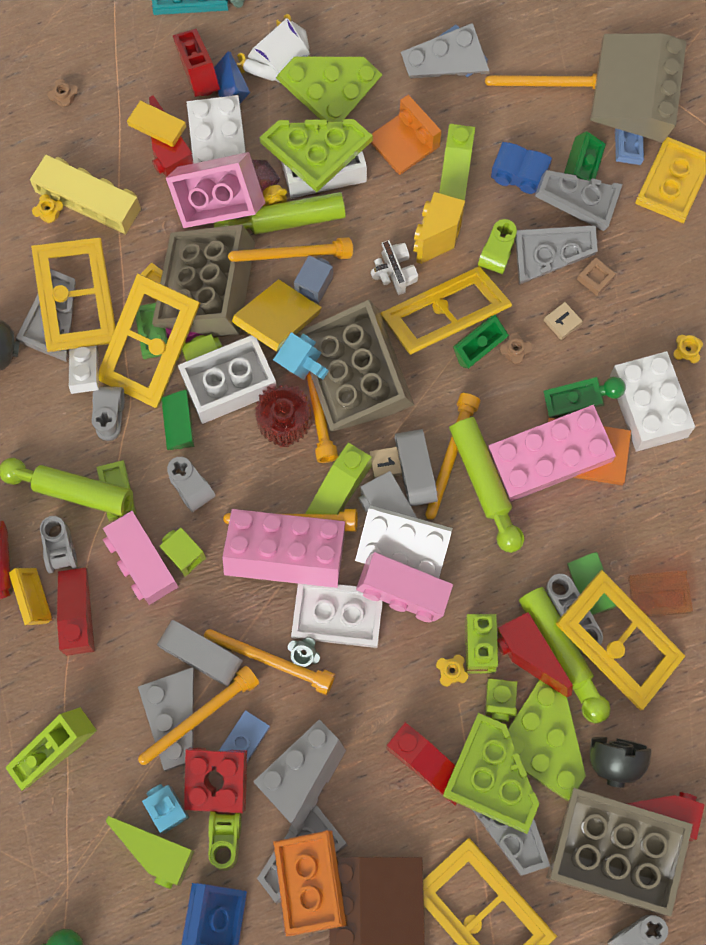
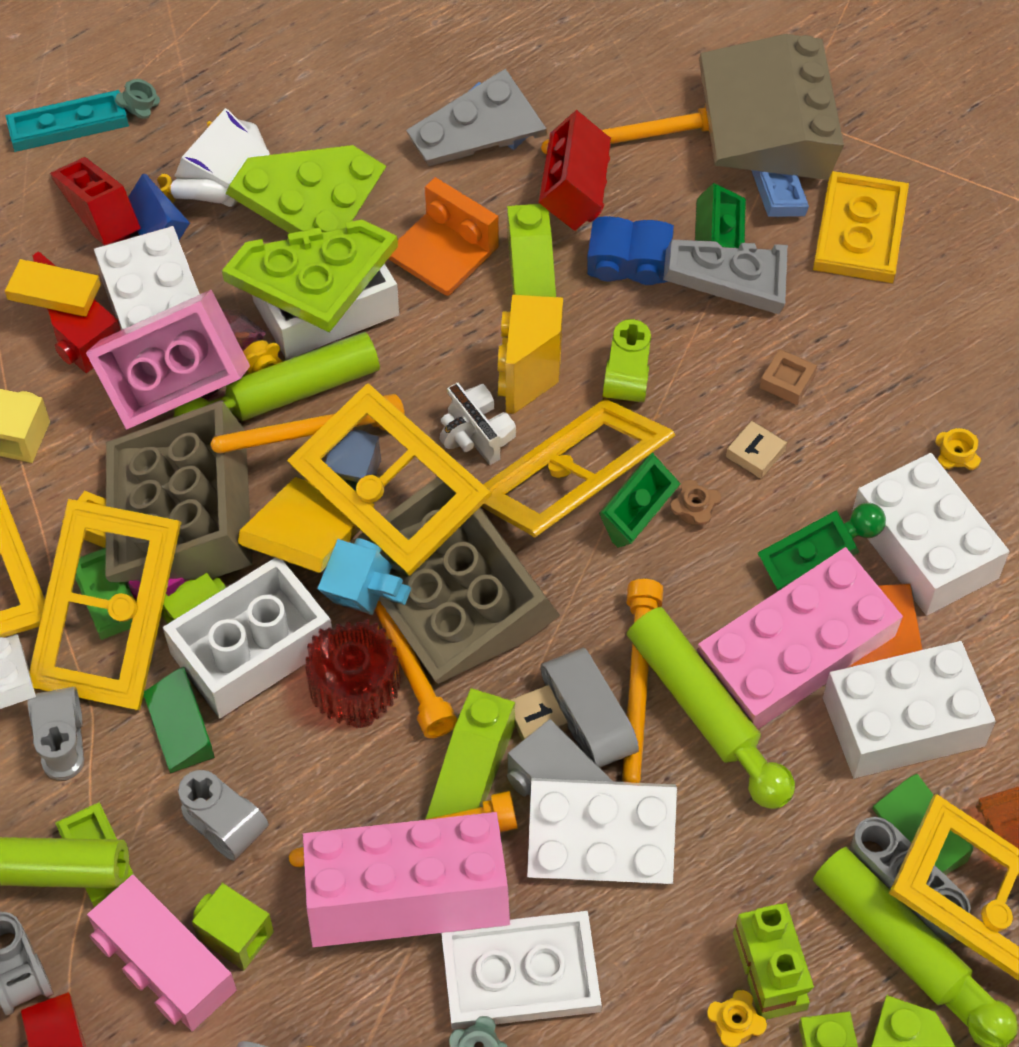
camera: 15 degrees left, 15 degrees down
(307, 309) = (355, 504): none -> yellow door
(404, 588) = (622, 897): bright pink brick -> none
(499, 106) = (575, 171): none -> red brick
(531, 652) = (863, 957): red slope -> none
(551, 249) = (710, 351): light grey wing -> none
(604, 510) = (908, 709): none -> white brick

